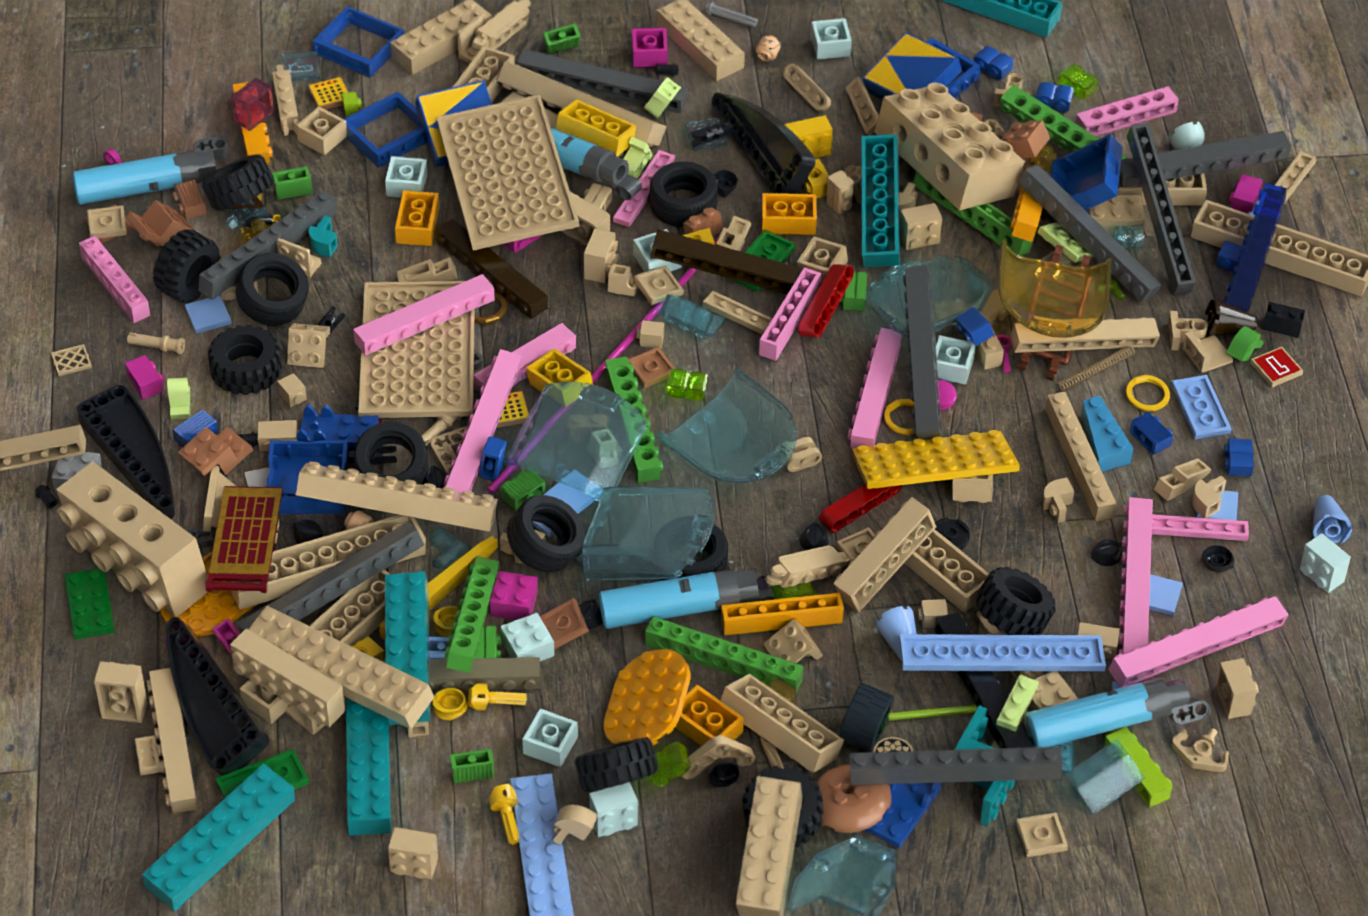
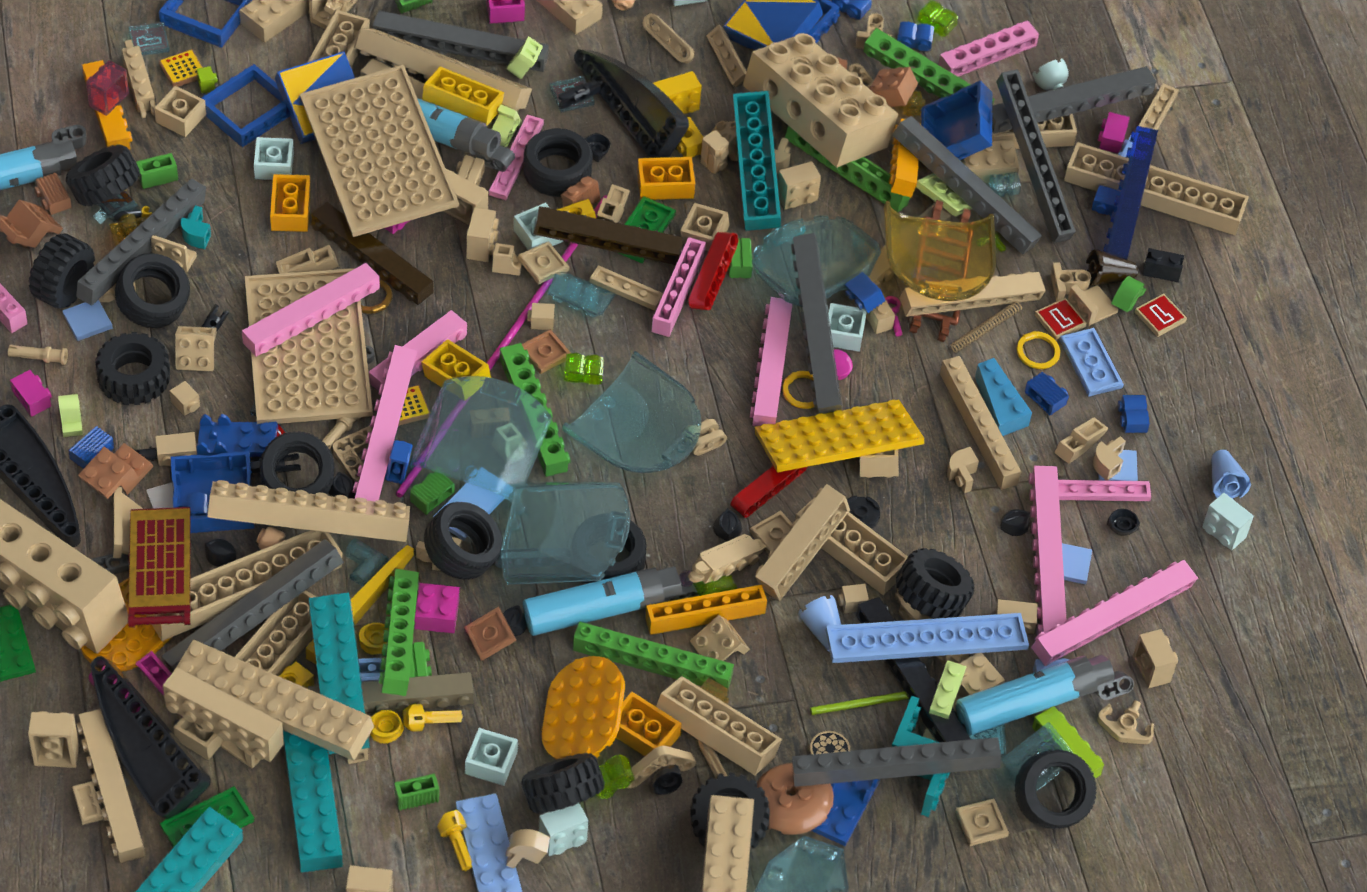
camera: 10 degrees left, 5 degrees up
(527, 638) = (456, 652): light aqua brick -> none
(668, 69) = (527, 24): black pin -> none
(866, 717) = (802, 715): black wheel -> none
(1145, 792) = (1084, 786): none -> black tyre
(1173, 364) = (1060, 318): none -> red tile

